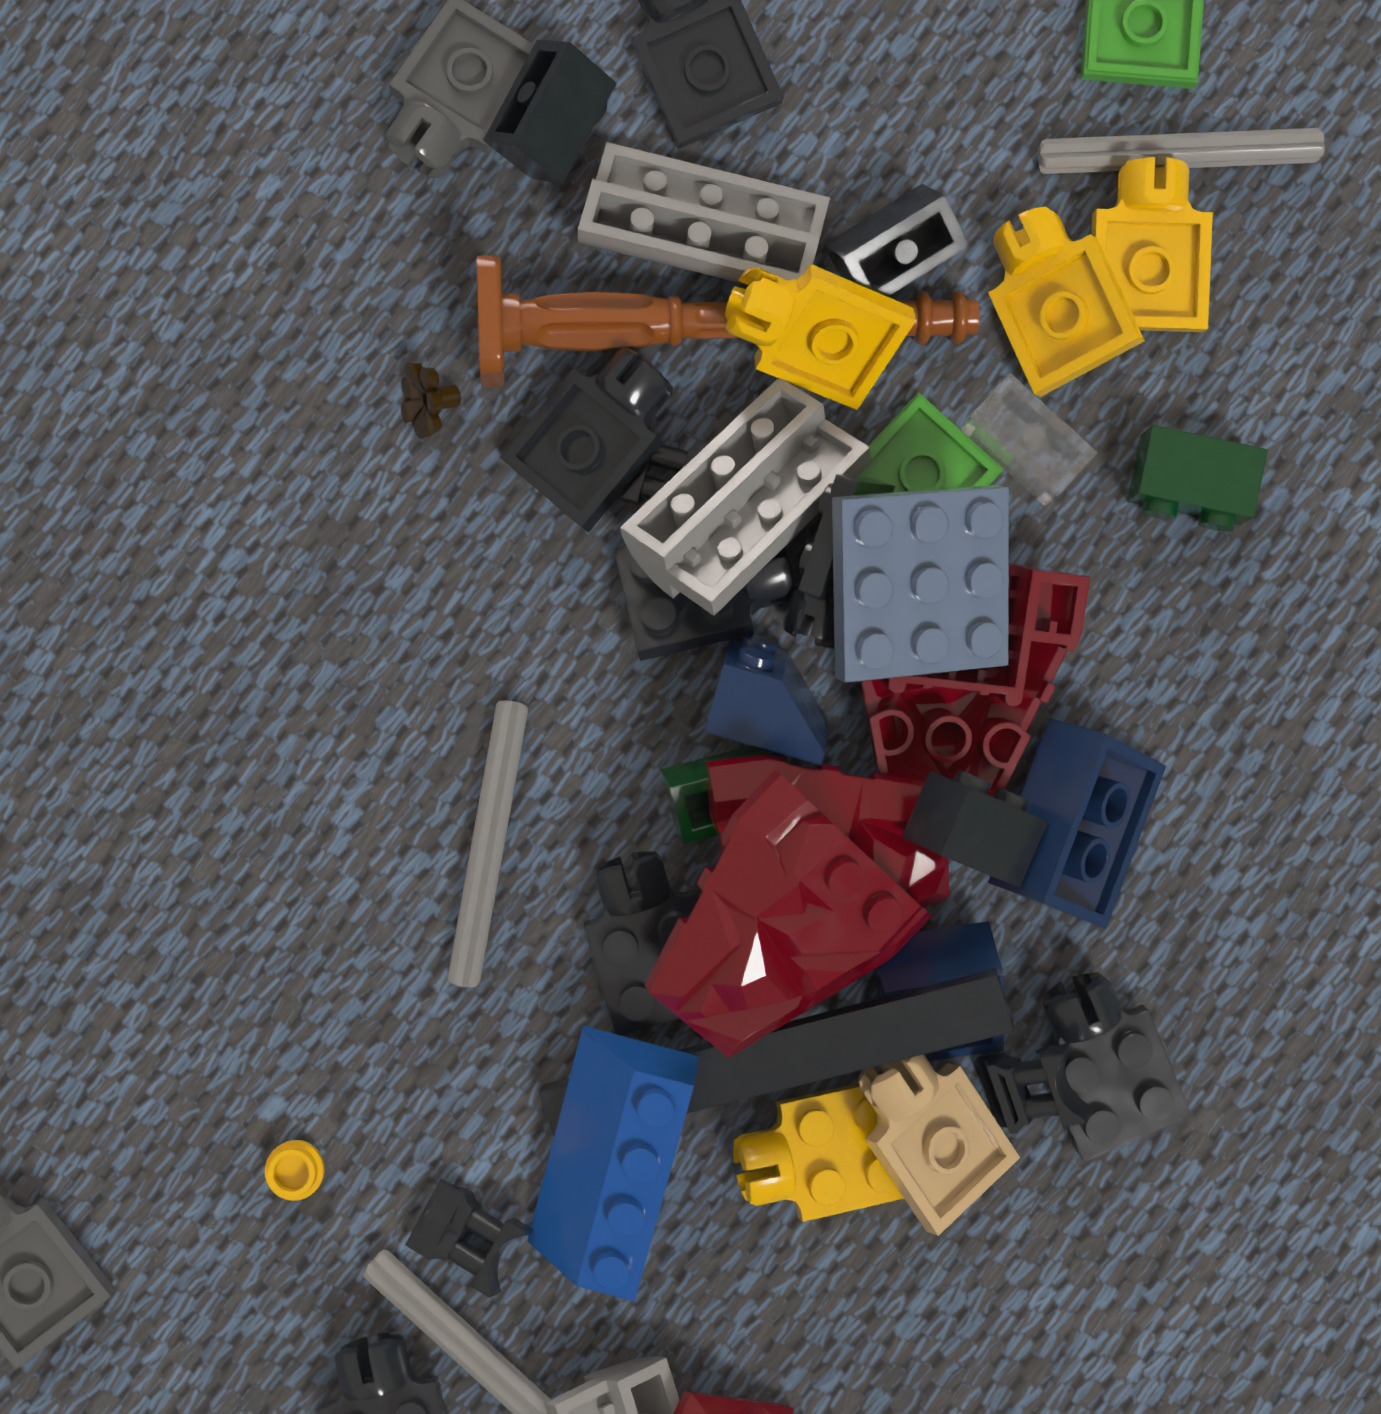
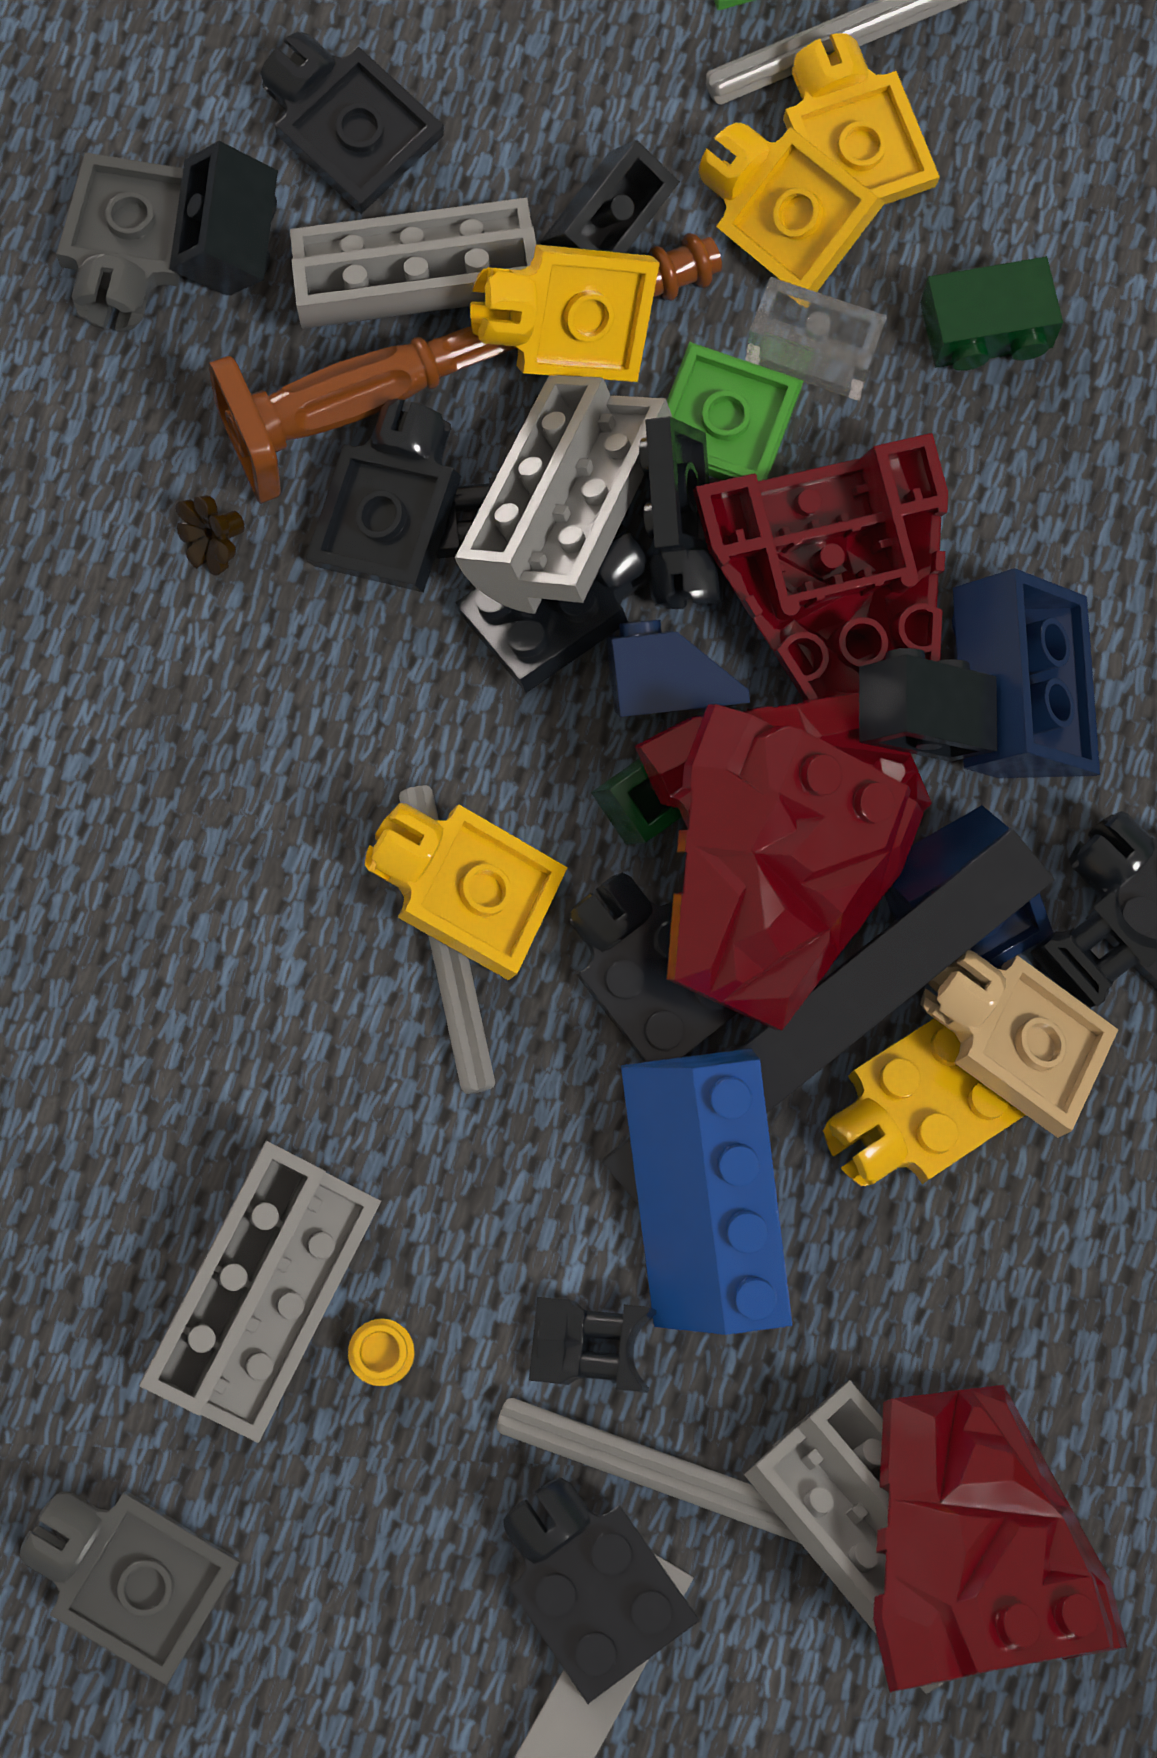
camera: 20 degrees left, 10 degrees down
(212, 1085) = (260, 1292): none -> light grey brick
(520, 810) = (466, 883): none -> yellow plate
(920, 582) = (770, 493): sand blue plate -> none

